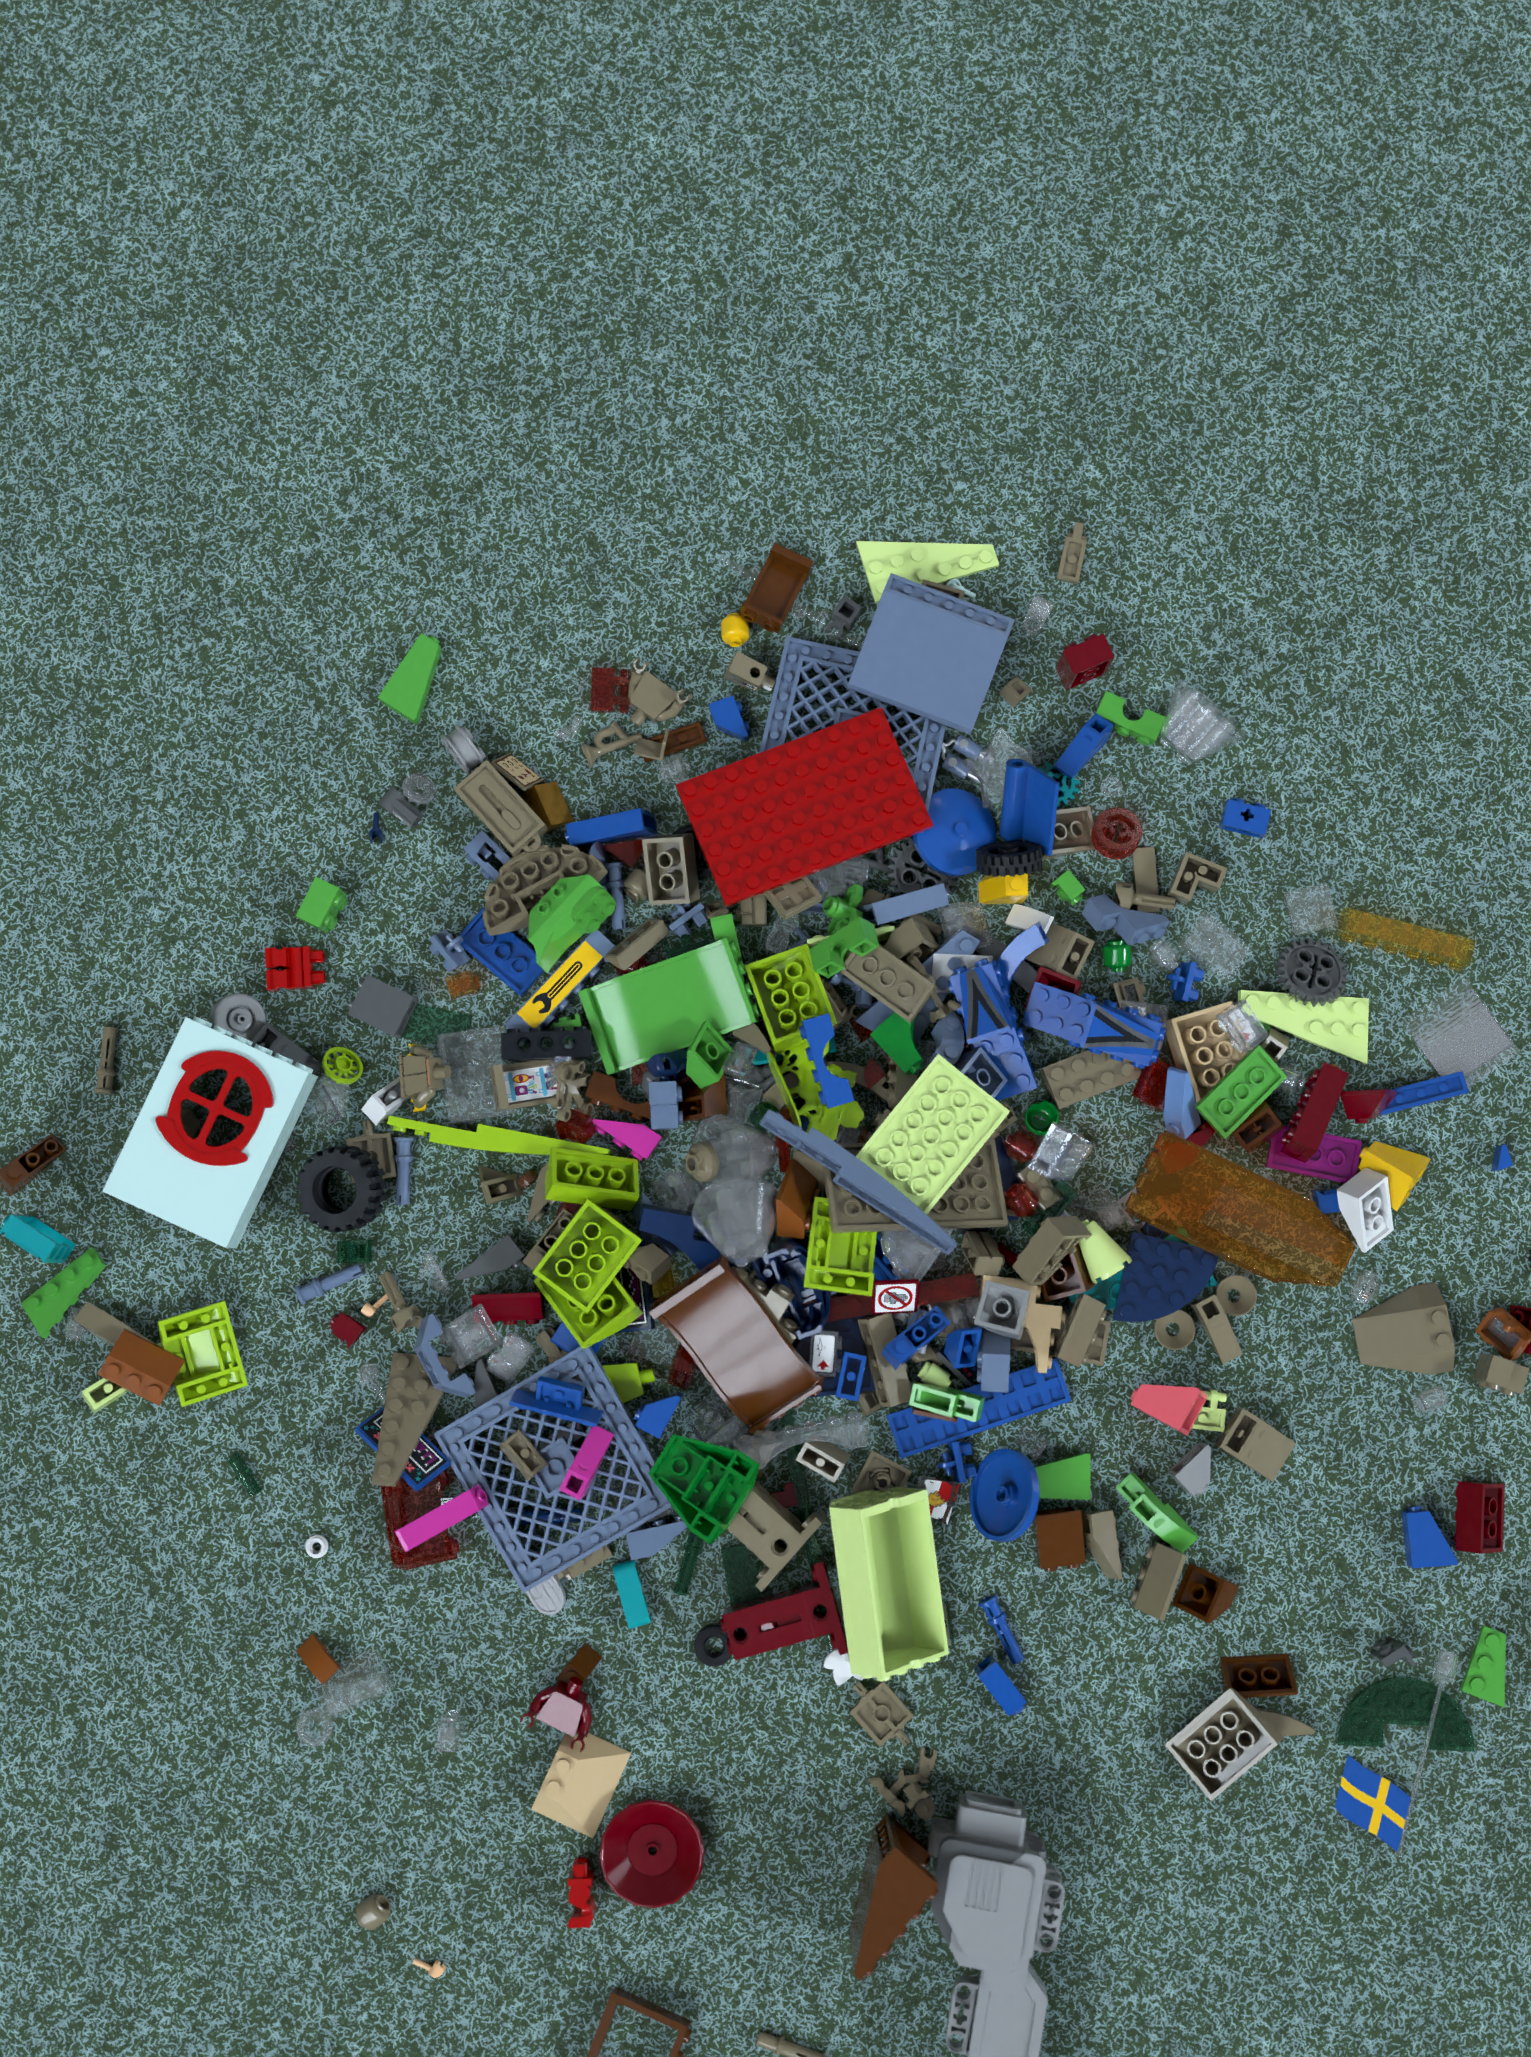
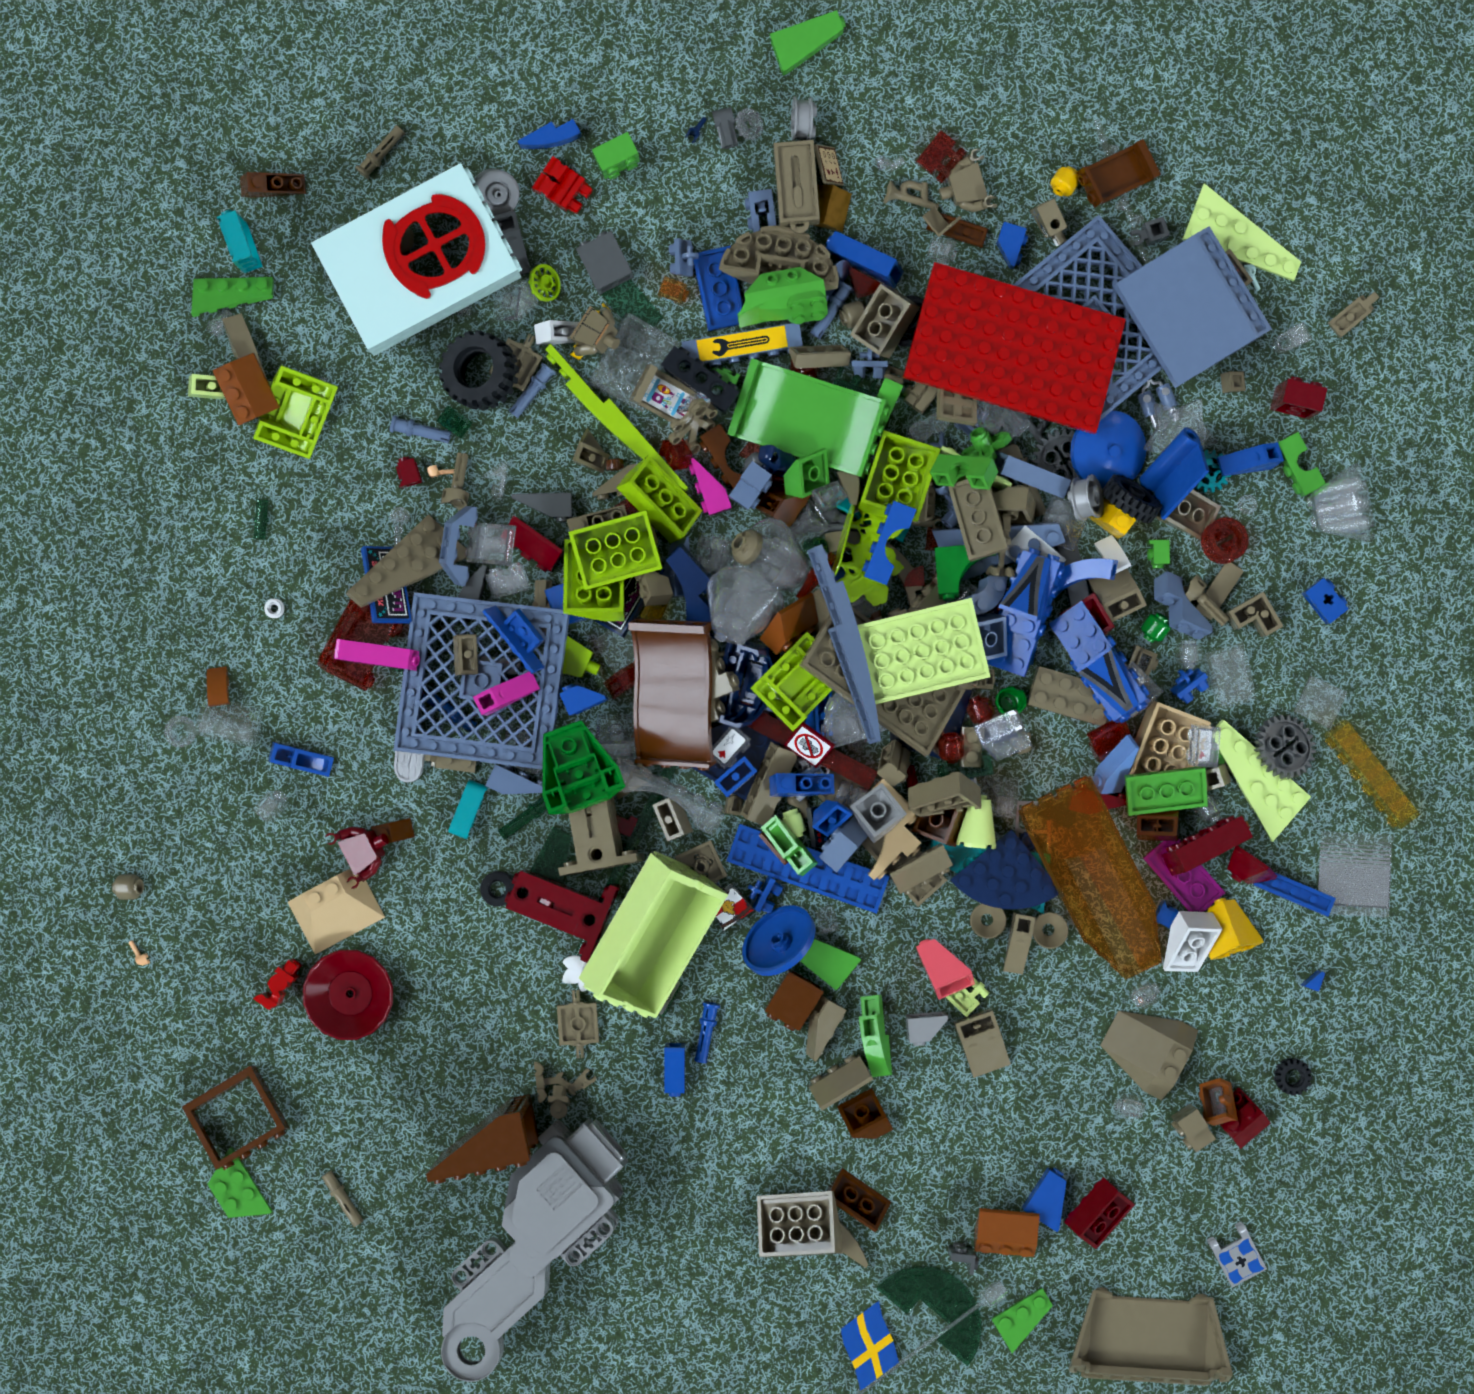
camera: 45 degrees right, 5 degrees up
(251, 932) = (550, 137): none -> blue slope
(444, 1667) = (300, 759): none -> blue slope
(968, 888) = (1086, 497): none -> light grey wheel
(1413, 1601) = (1006, 1232): none -> dark orange slope

